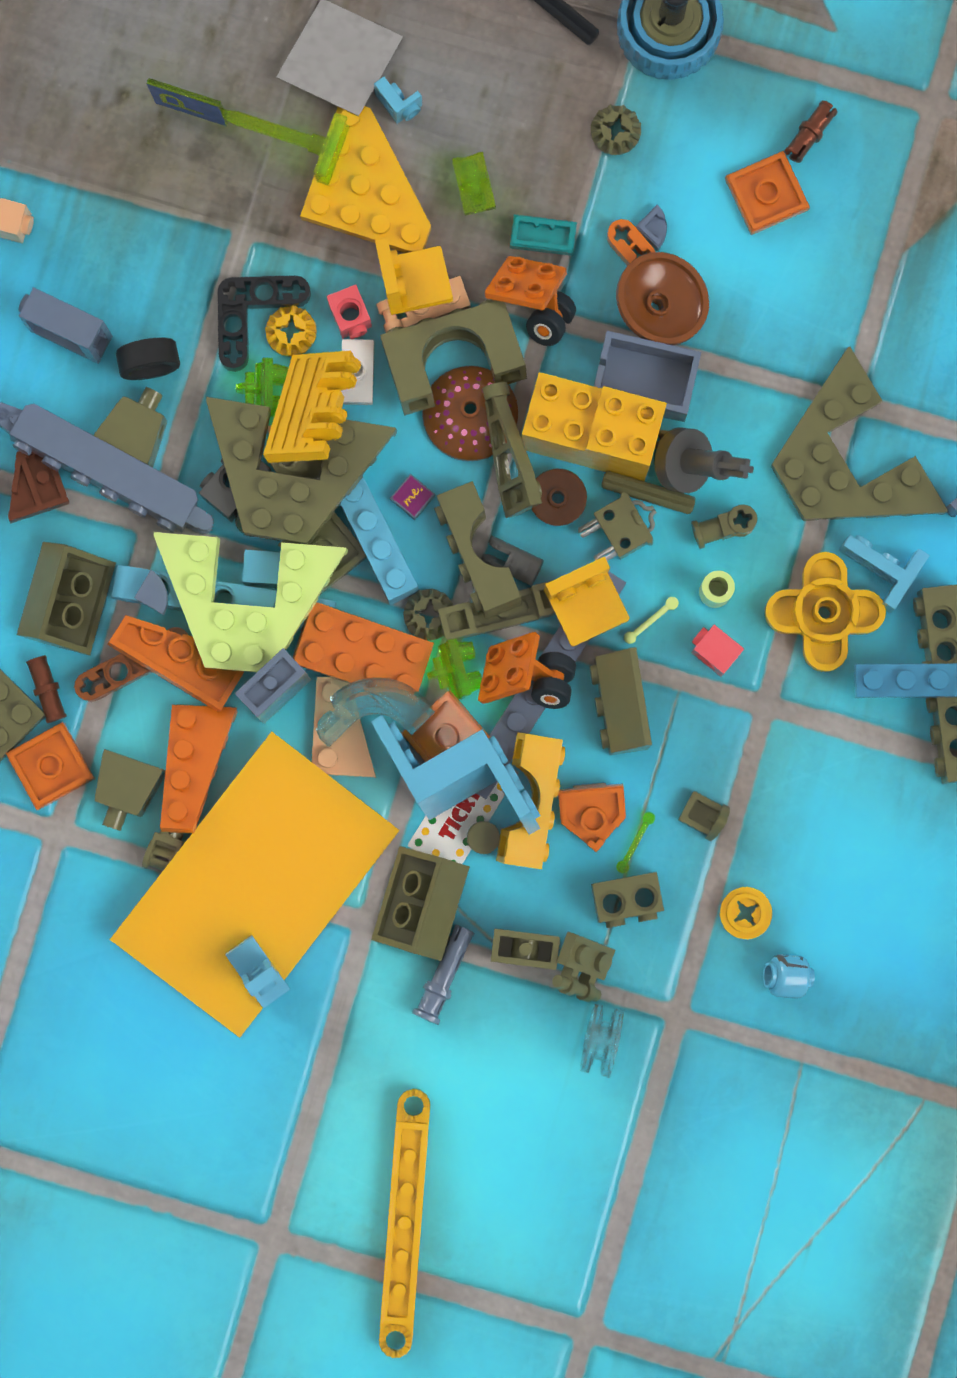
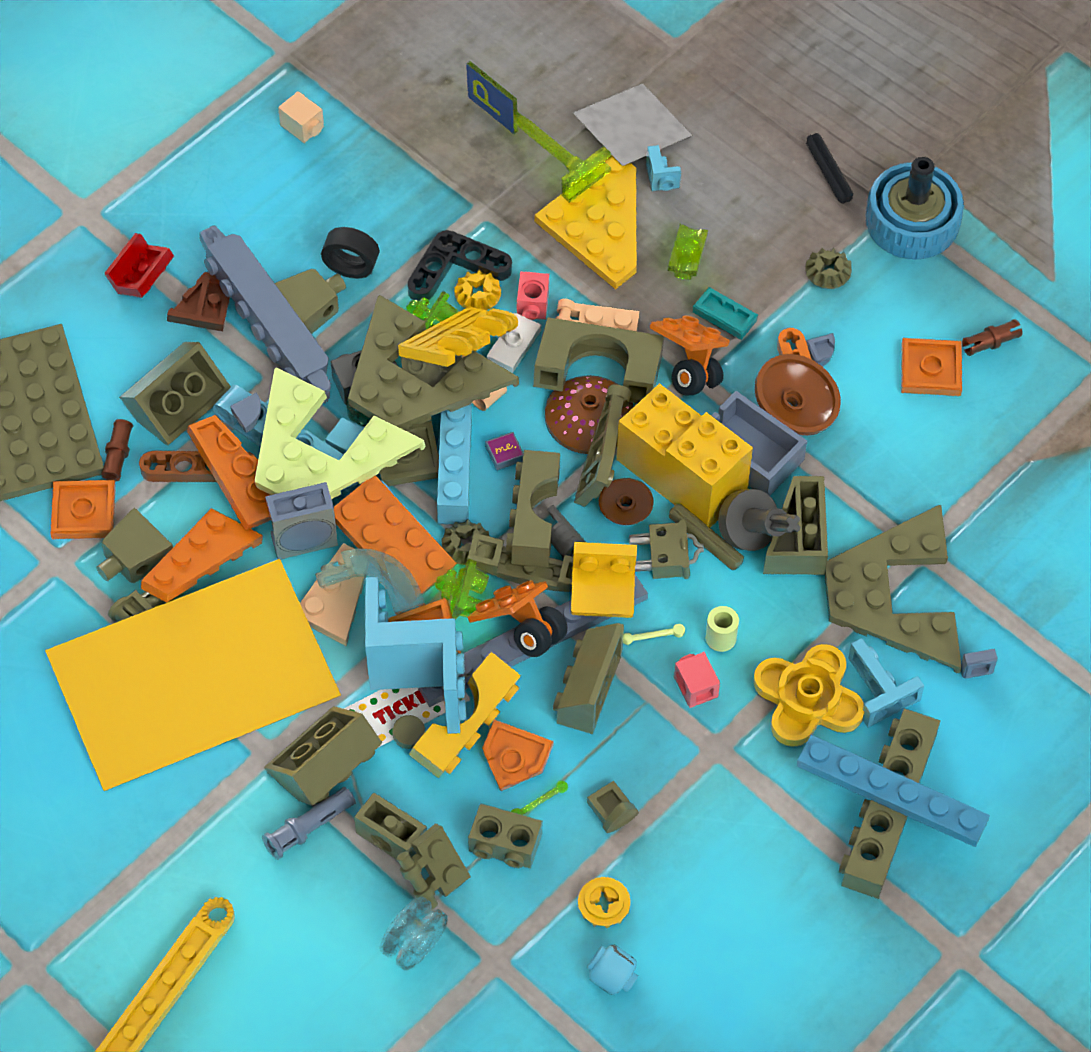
camera: 25 degrees right, 25 degrees down
(65, 325) = (300, 201): sand blue window -> none
(257, 972) = (151, 741): medium azure bracket -> none
(413, 278) = (596, 291): yellow bracket -> none
(723, 526) = (759, 588): olive connector -> none
(735, 430) = (807, 549): none -> olive wedge

